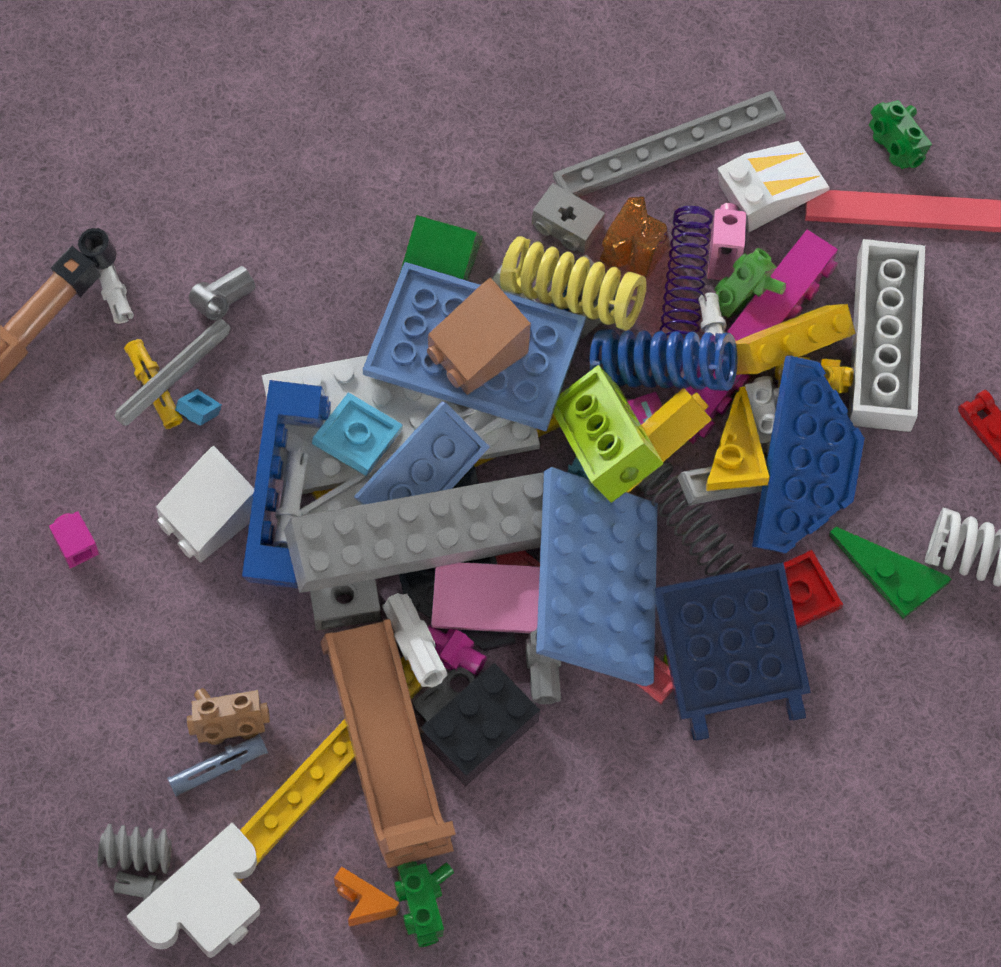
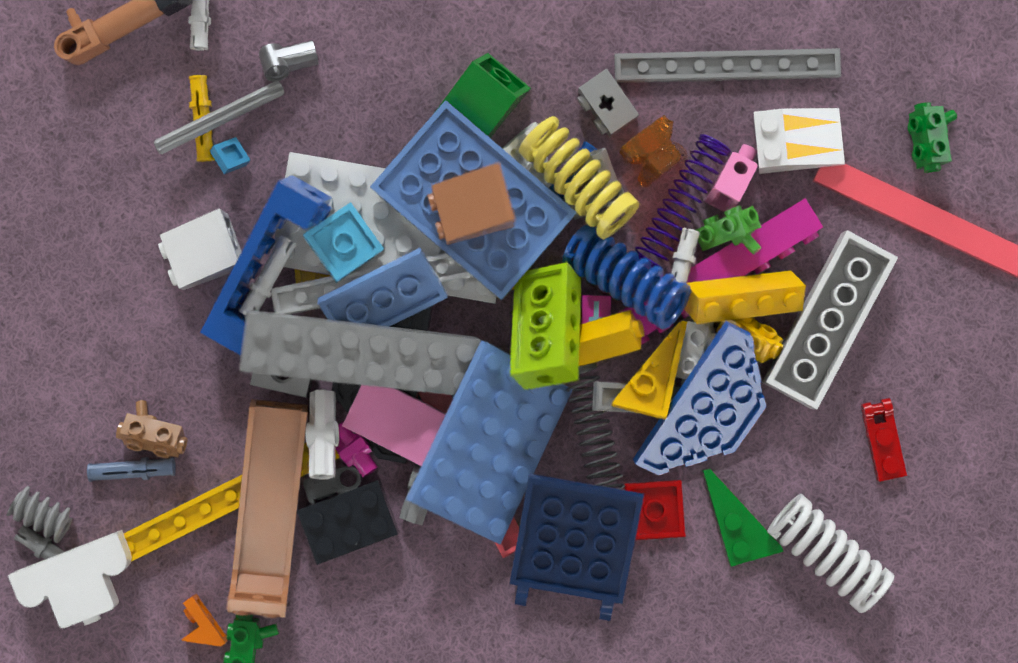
camera: 25 degrees right, 20 degrees up
(73, 539) = (86, 232): dark pink brick -> none

